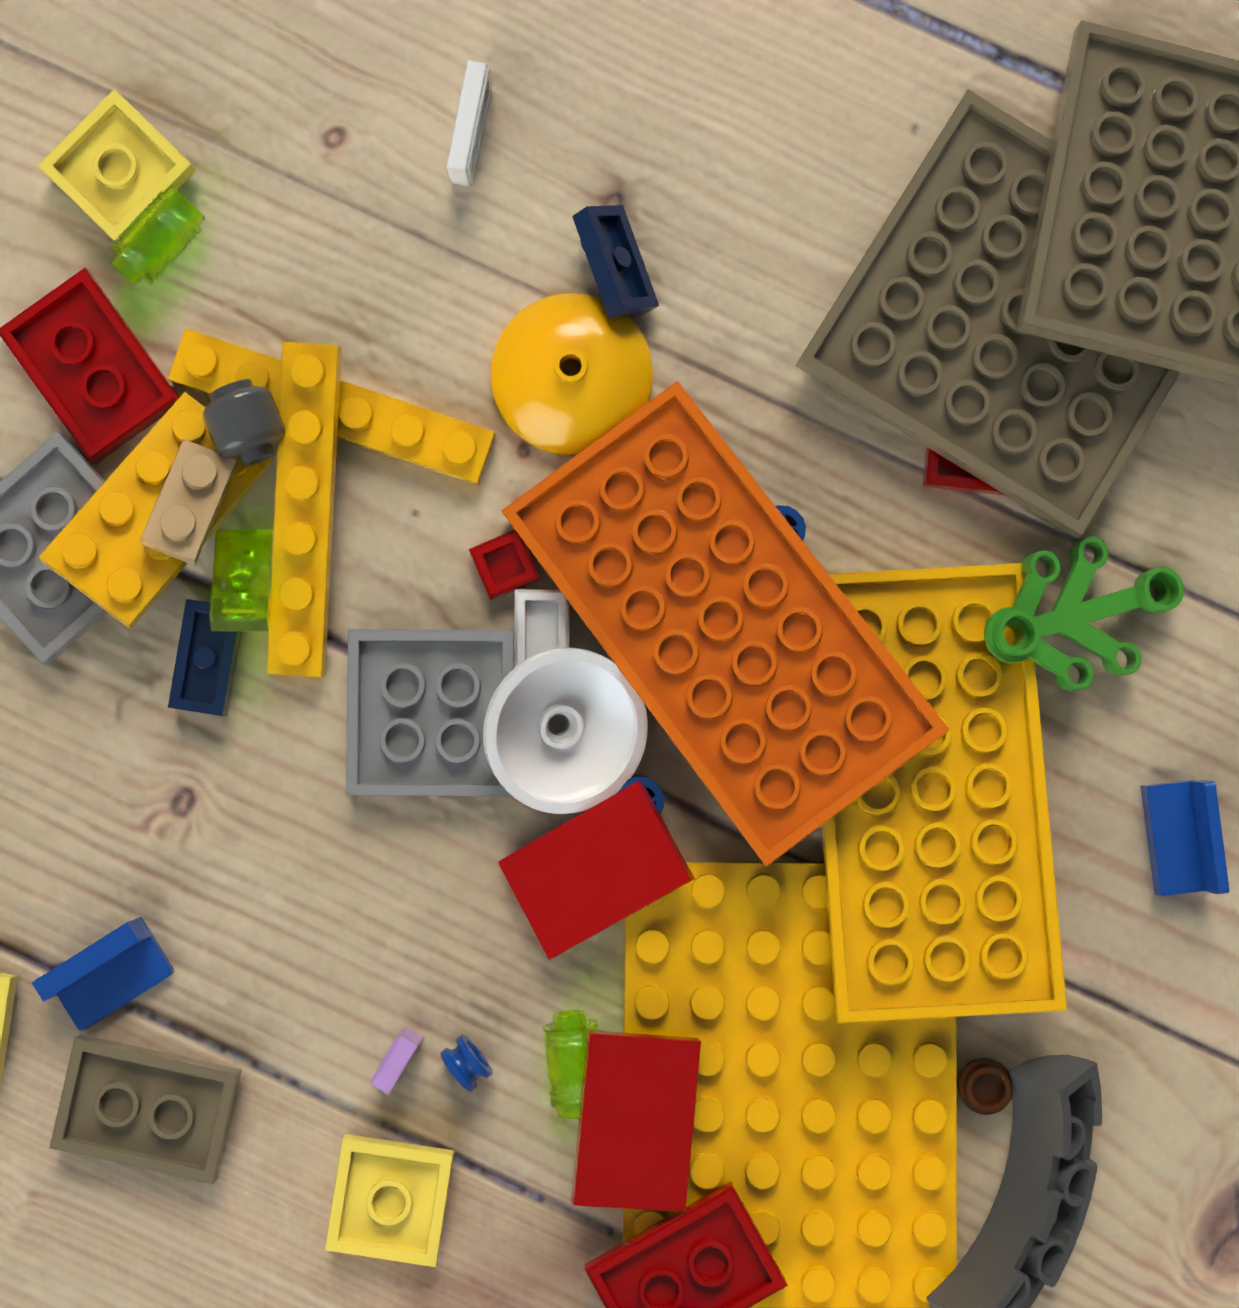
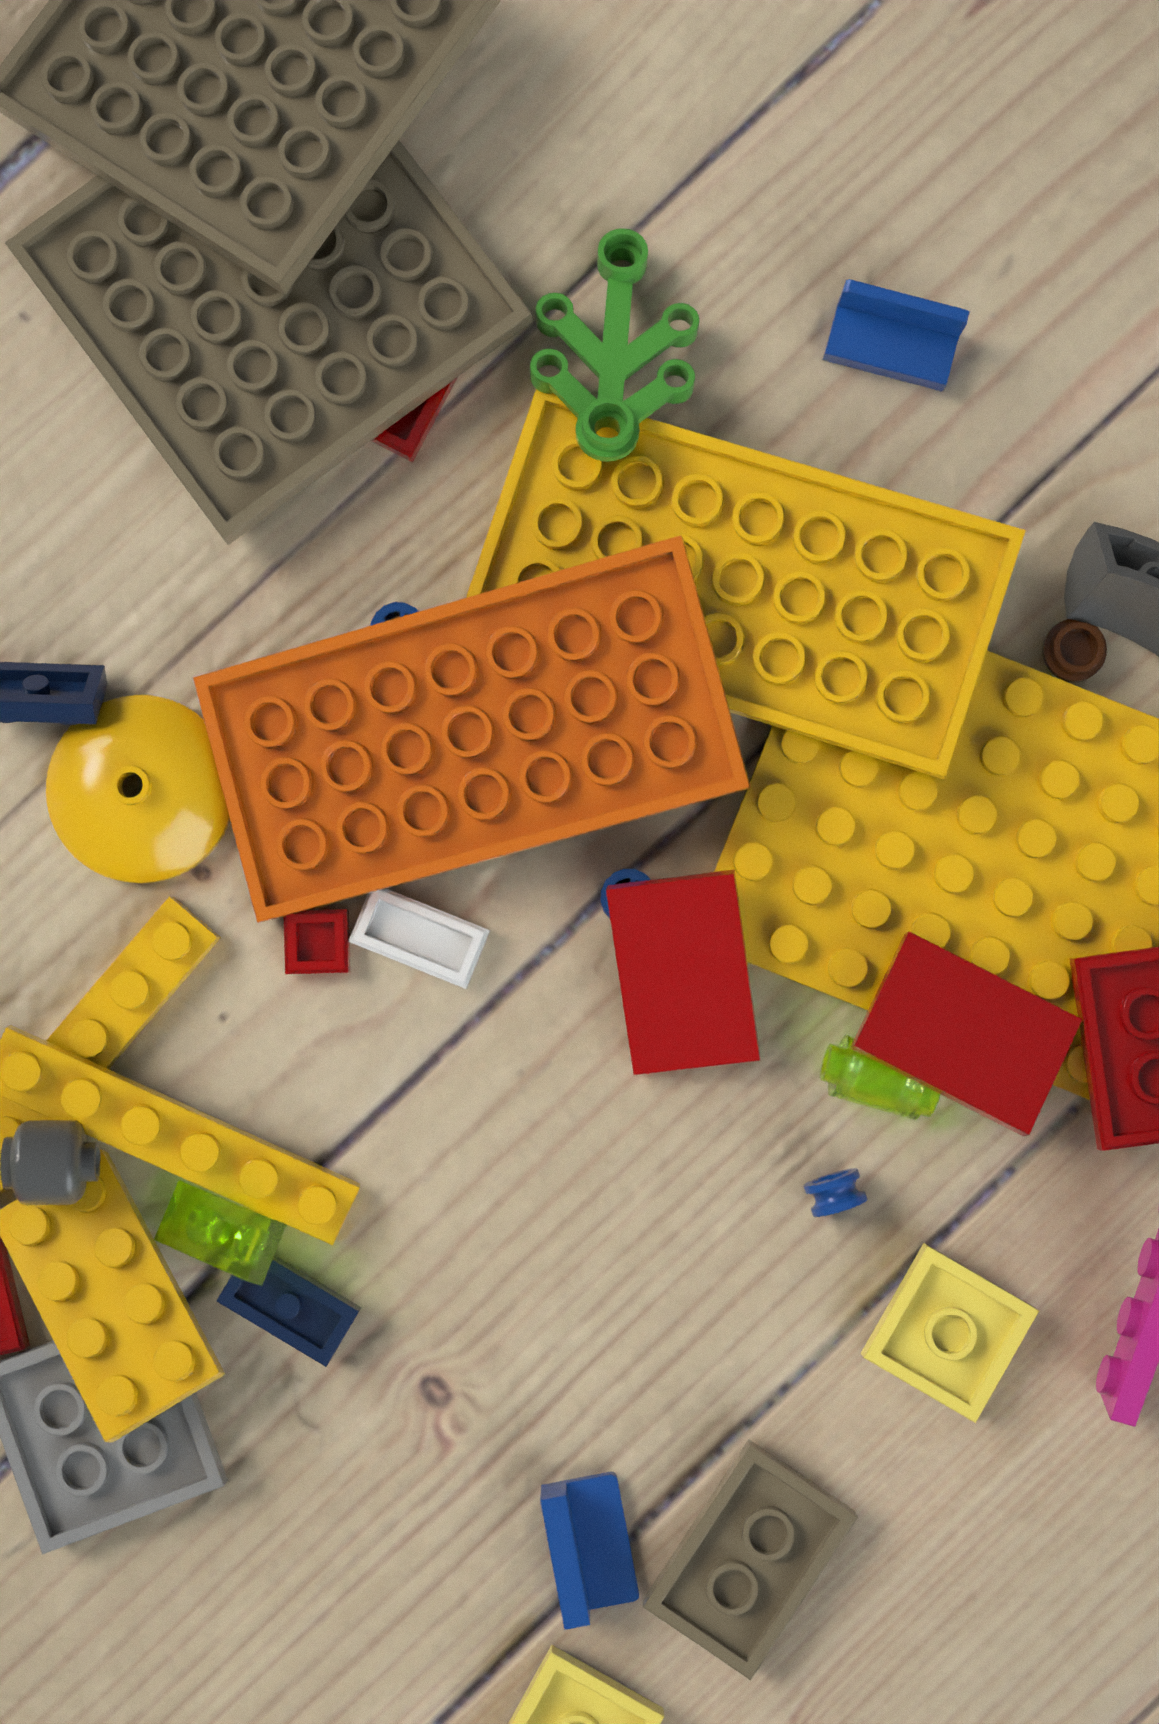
camera: 65 degrees left, 0 degrees up
(188, 502) = (112, 1255): tan plate -> none
(396, 1060) = (802, 1266): lavender tile -> none
(422, 710) = (444, 1084): light grey plate -> none
(590, 752) = (551, 922): white dish -> none

